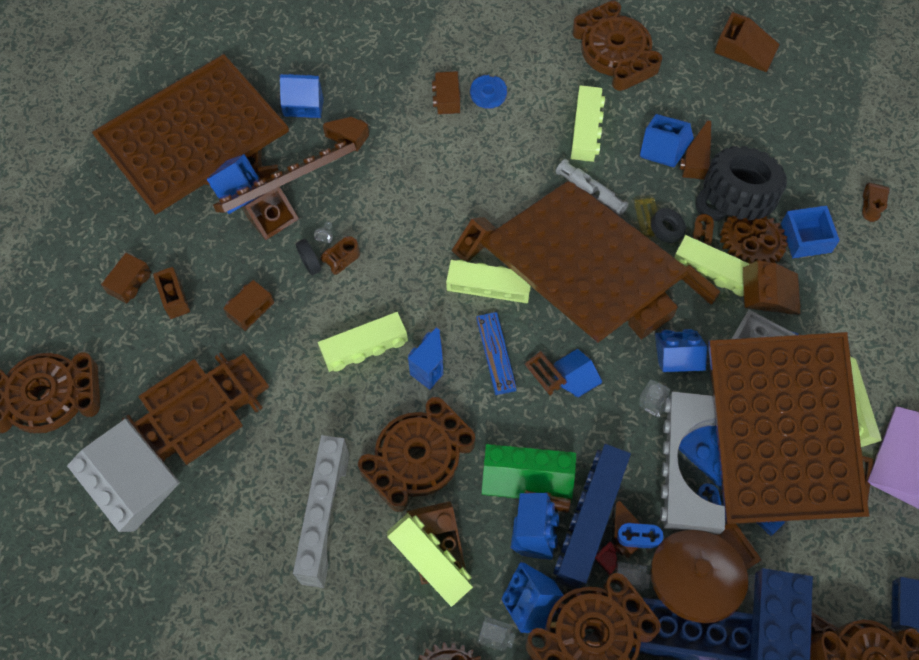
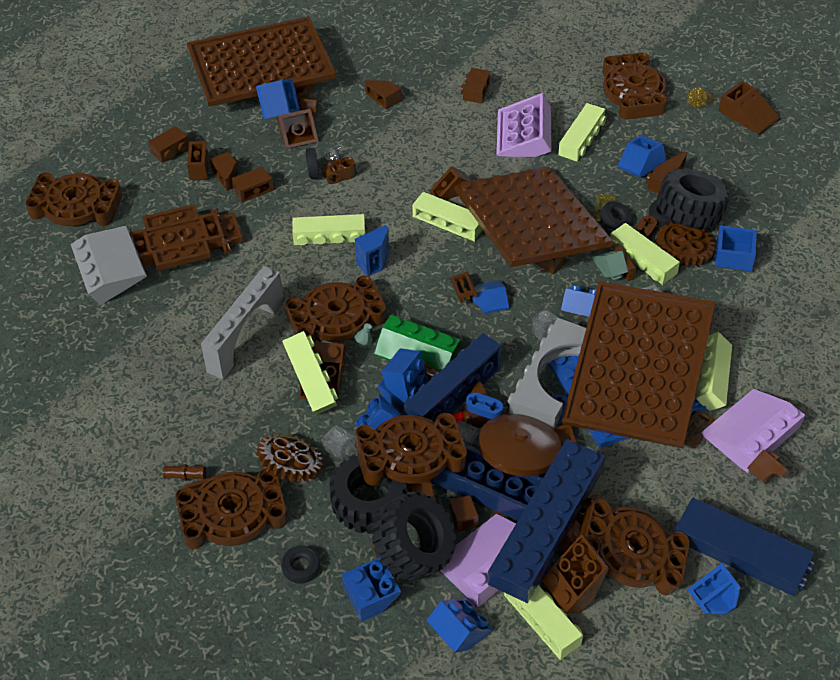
camera: 20 degrees right, 15 degrees down
(208, 293) = (224, 169): none -> reddish brown slope
(280, 178) = (313, 103): reddish brown plate -> none
(301, 96) = (357, 59): slope -> none
(462, 476) = (364, 336): none -> sand green rock
(488, 97) = (511, 93): blue tile -> none
(496, 353) = (431, 266): blue tile -> none
(523, 136) = (525, 128): none -> lavender slope
(590, 185) = (565, 175): light grey piece -> none
(653, 316) = (571, 271): reddish brown brick -> none
(688, 43) = (697, 97): none -> clear yellow gear
(691, 292) = (611, 264): none -> sand green slope
(771, 288) = (681, 274): reddish brown slope -> none
(874, 201) = (808, 244): reddish brown piece -> none

